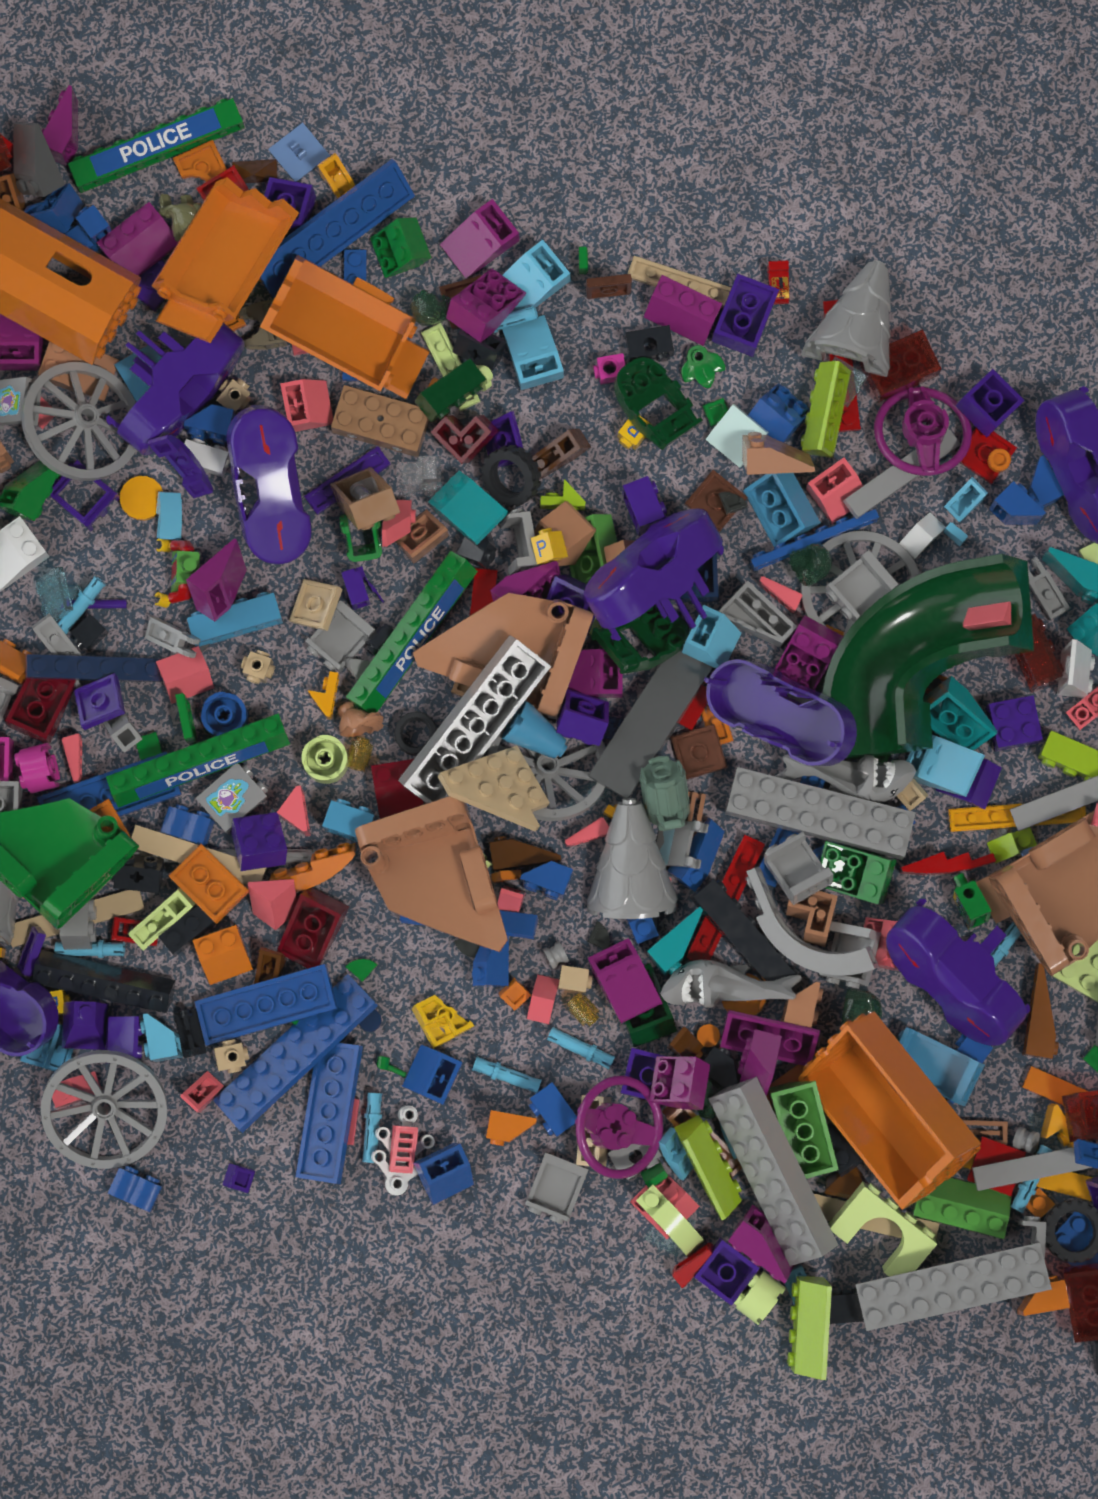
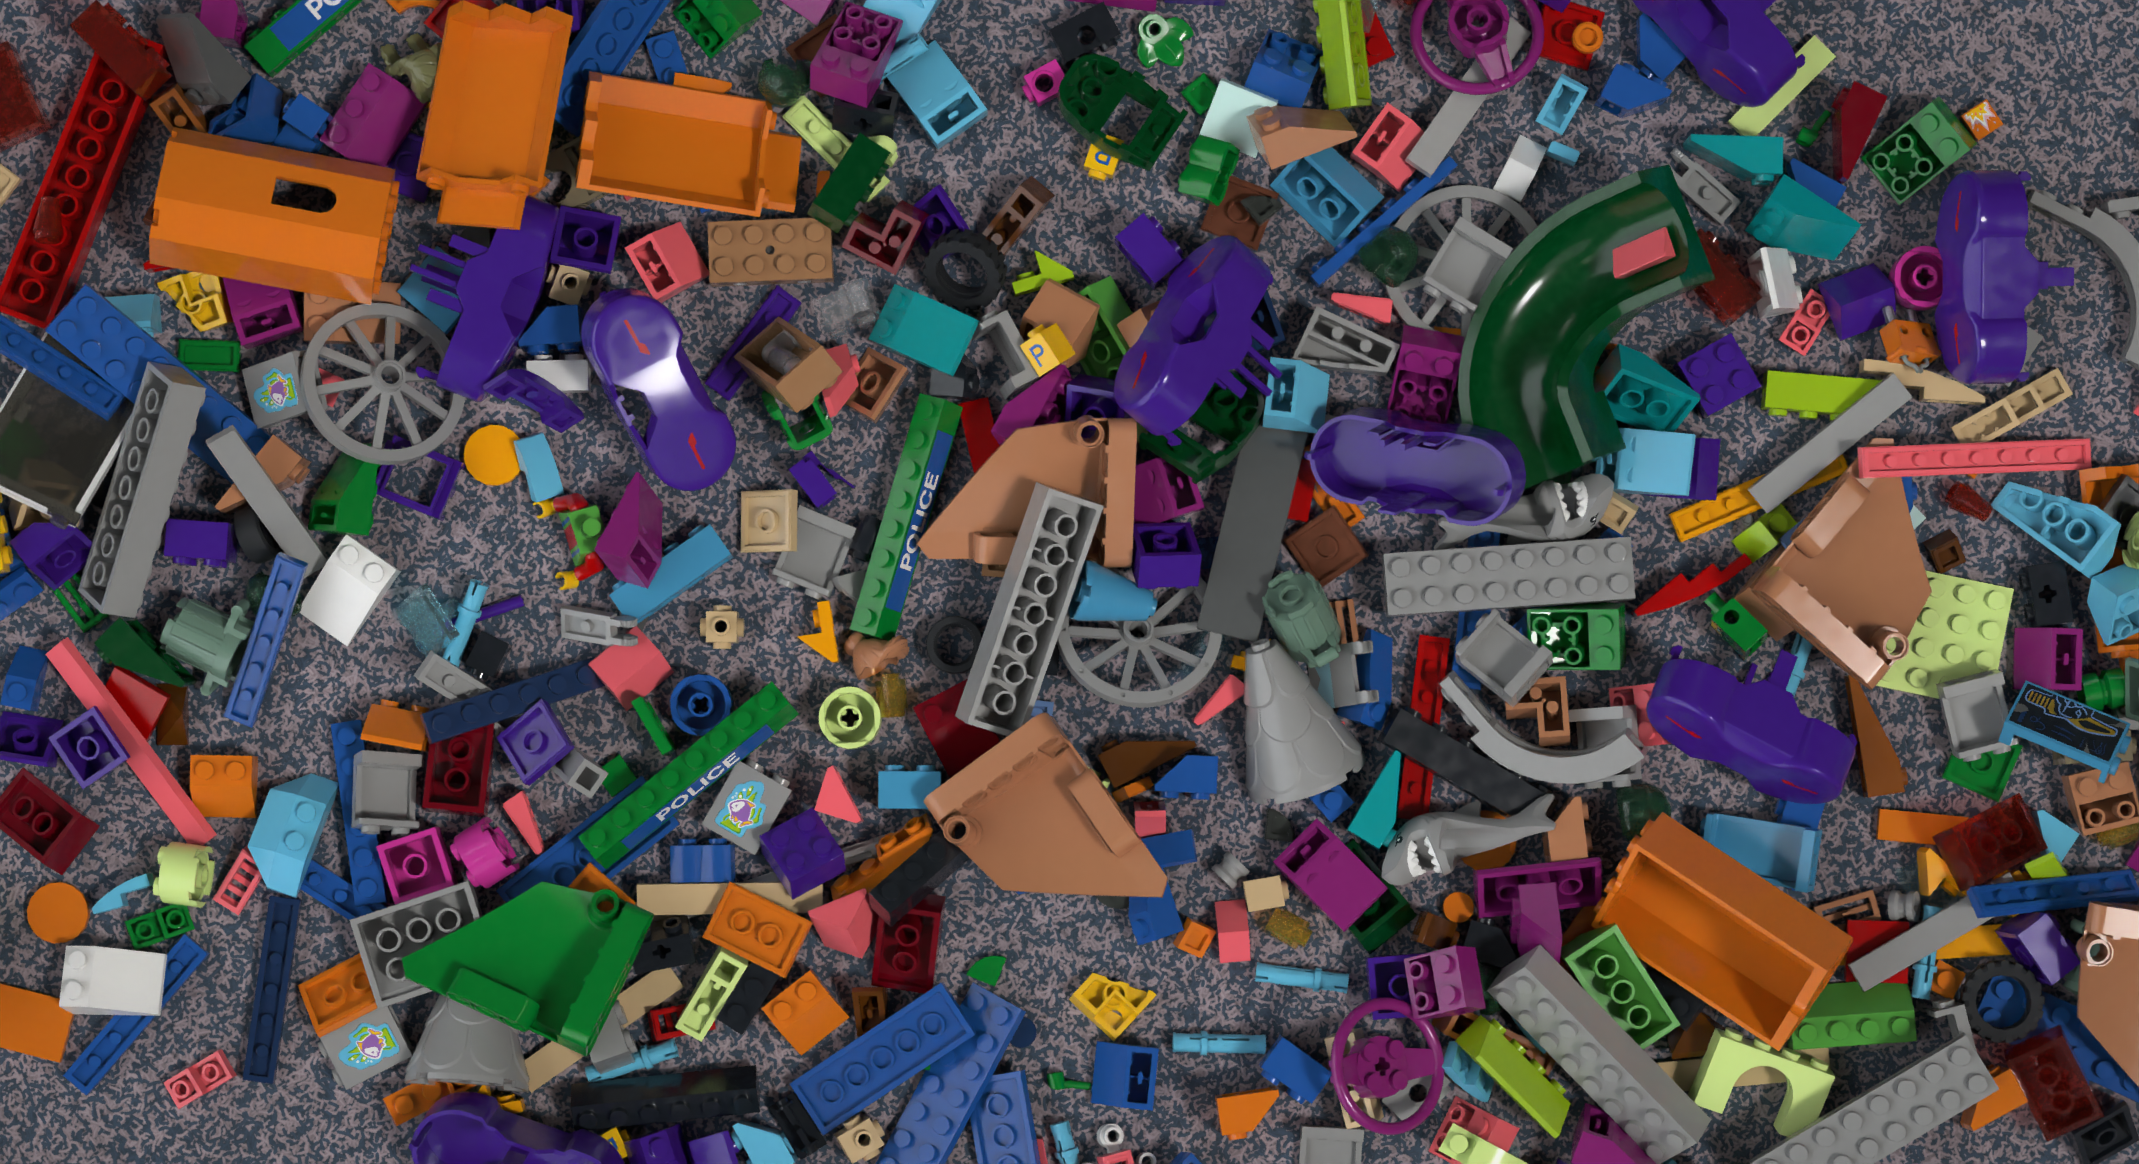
camera: 20 degrees left, 5 degrees up
(31, 950) = (559, 1090): dark purple tile -> none
(256, 369) = (585, 239): none -> dark purple slope
(332, 883) = (917, 877): none -> black brick
(498, 785) = (1088, 682): tan wing -> none
(654, 1175) = (1449, 1108): green tile -> none
(704, 464) = (1208, 170): none -> green brick

